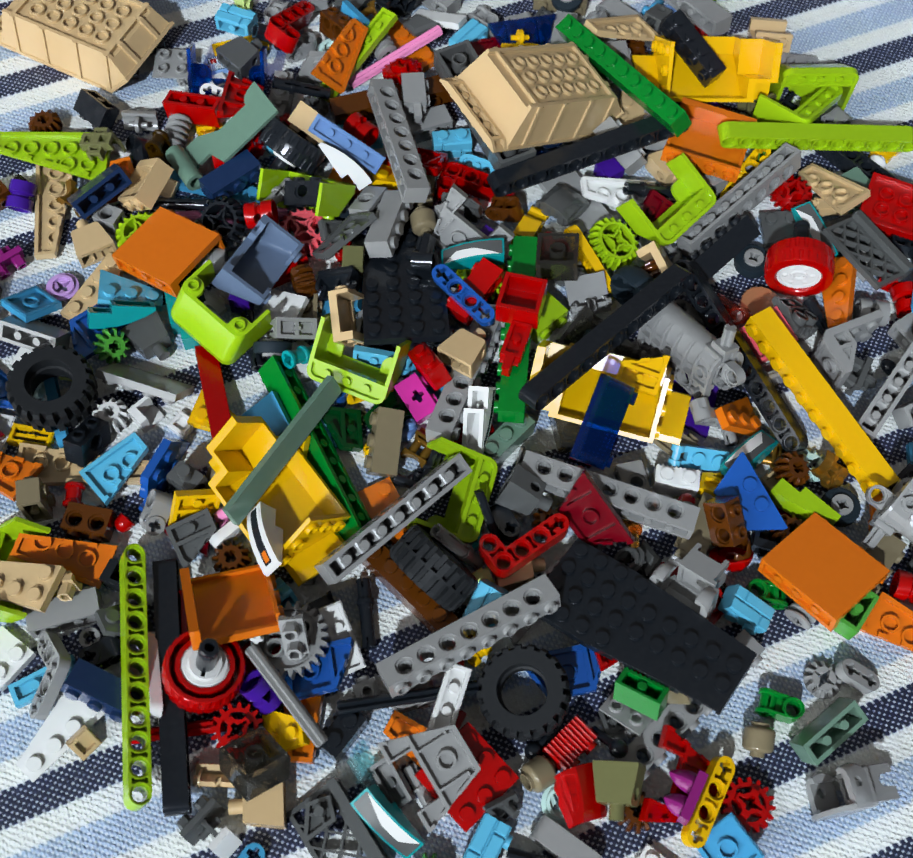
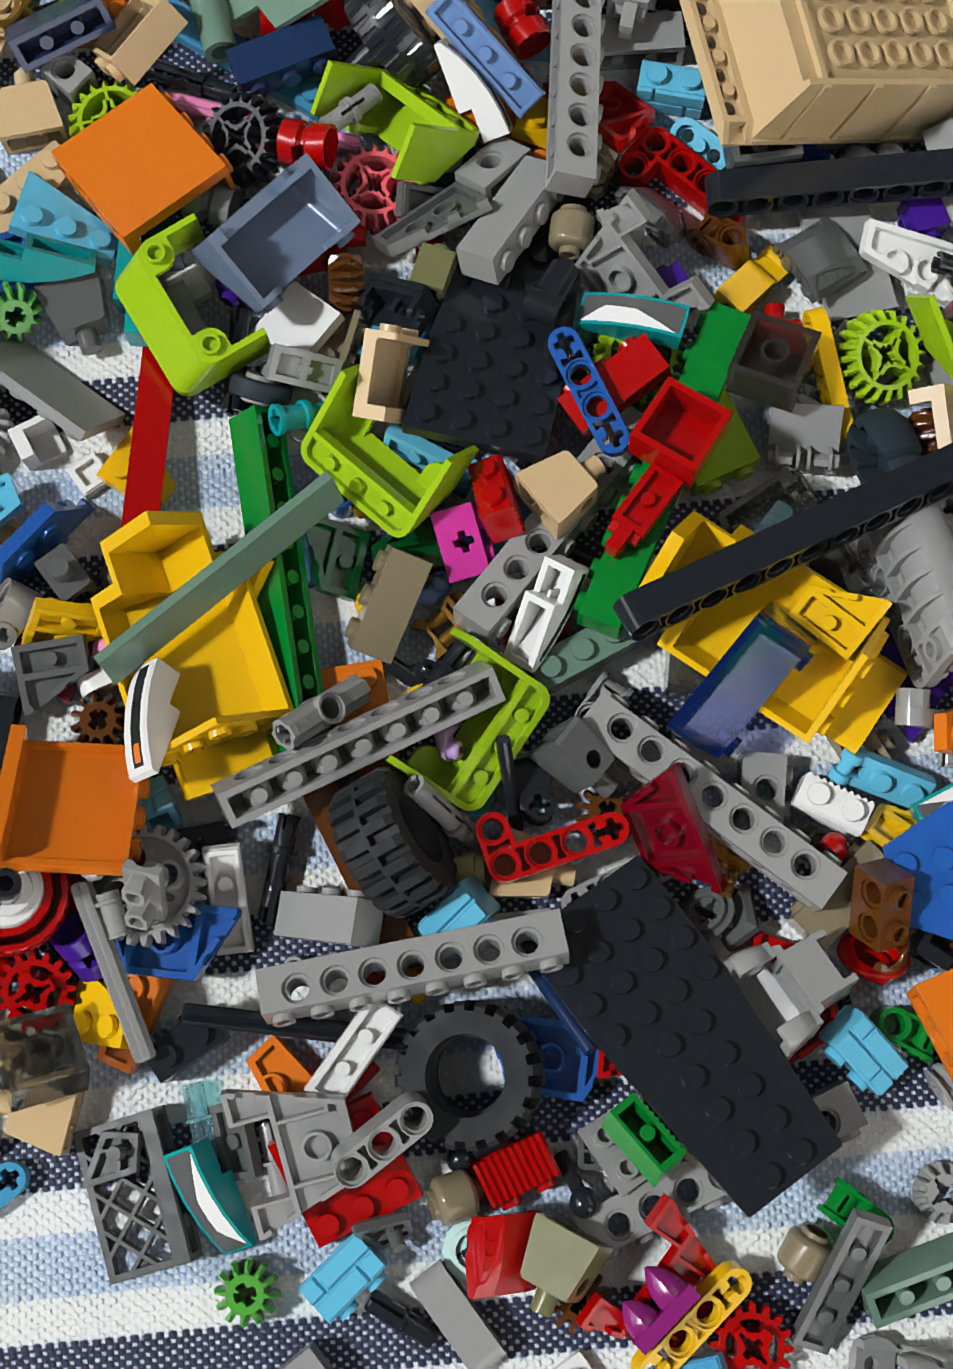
camera: 20 degrees right, 15 degrees up
(170, 188) = (180, 48): tan tile -> none
(272, 412) = (223, 504): dark azure tile -> none
(277, 658) = (113, 913): none -> light grey pin
(296, 195) = (387, 120): black brick -> none
(364, 683) = (240, 979): light grey brick -> none
(365, 509) = (321, 712): none -> light grey piece
(407, 626) = (328, 917): none -> light grey brick
(445, 513) = (447, 747): none -> lavender arm
(496, 733) = (376, 1158): none -> light grey beam
(563, 639) = (571, 1025): none -> dark blue bar
(785, 745) = (840, 1280): none -> dark grey plate

